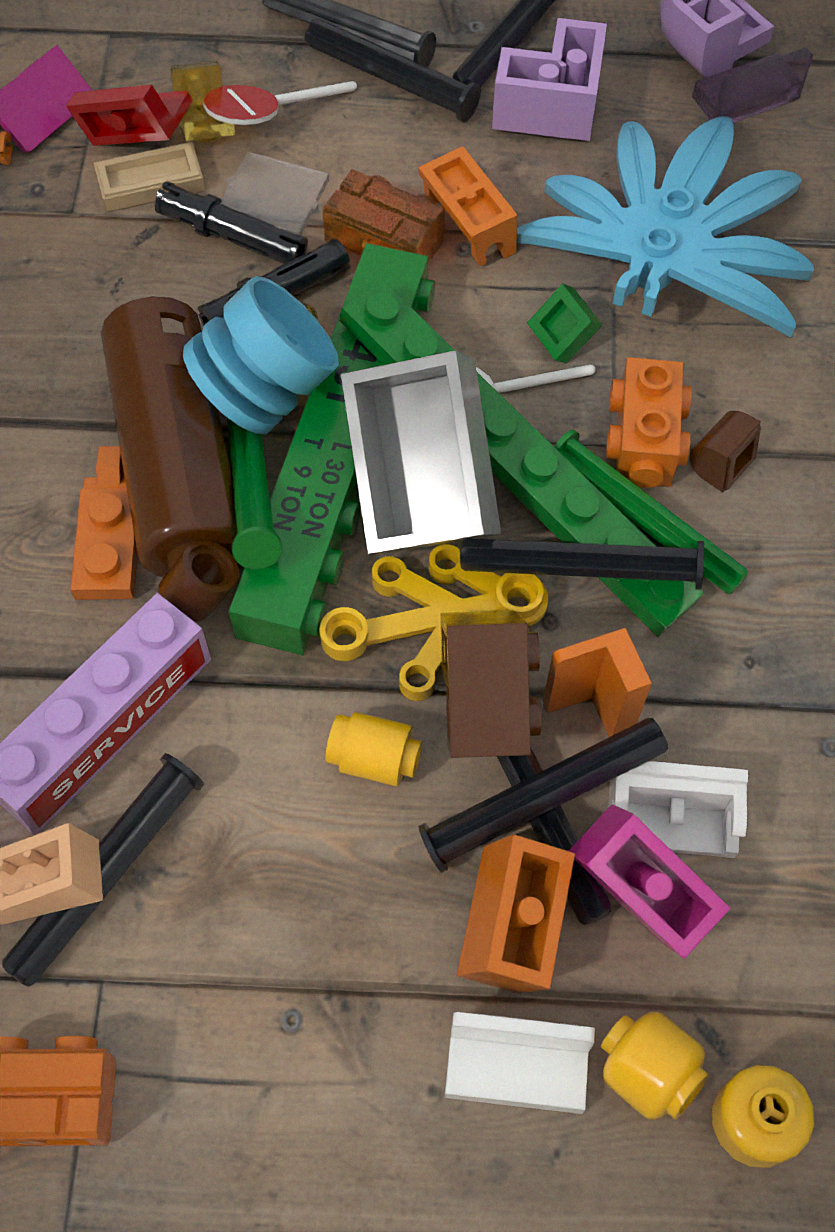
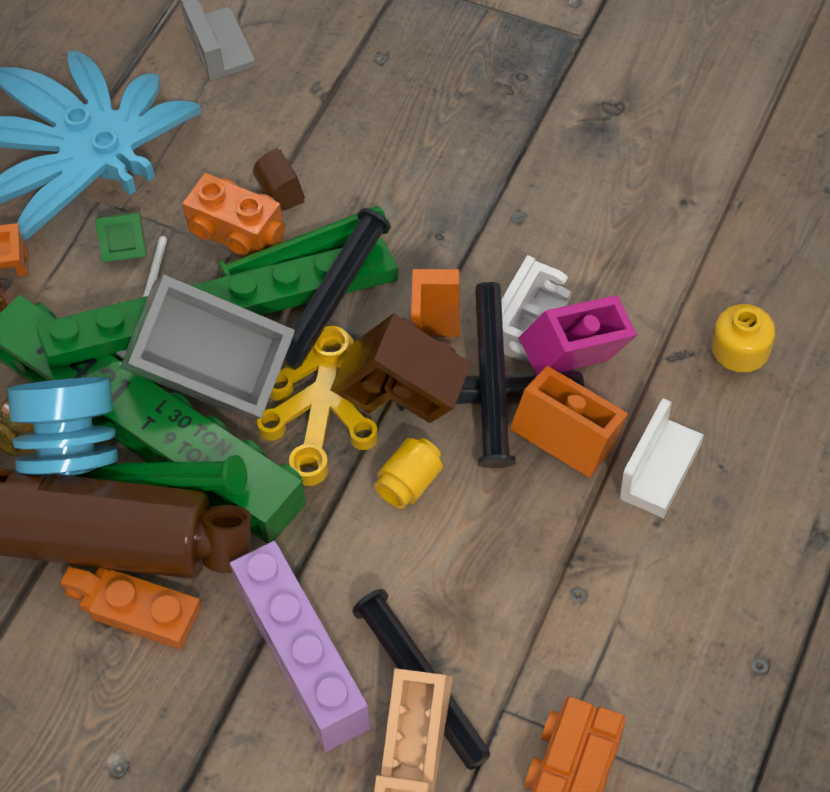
camera: 65 degrees left, 5 degrees down
(654, 1065) = (692, 383): yellow head -> none

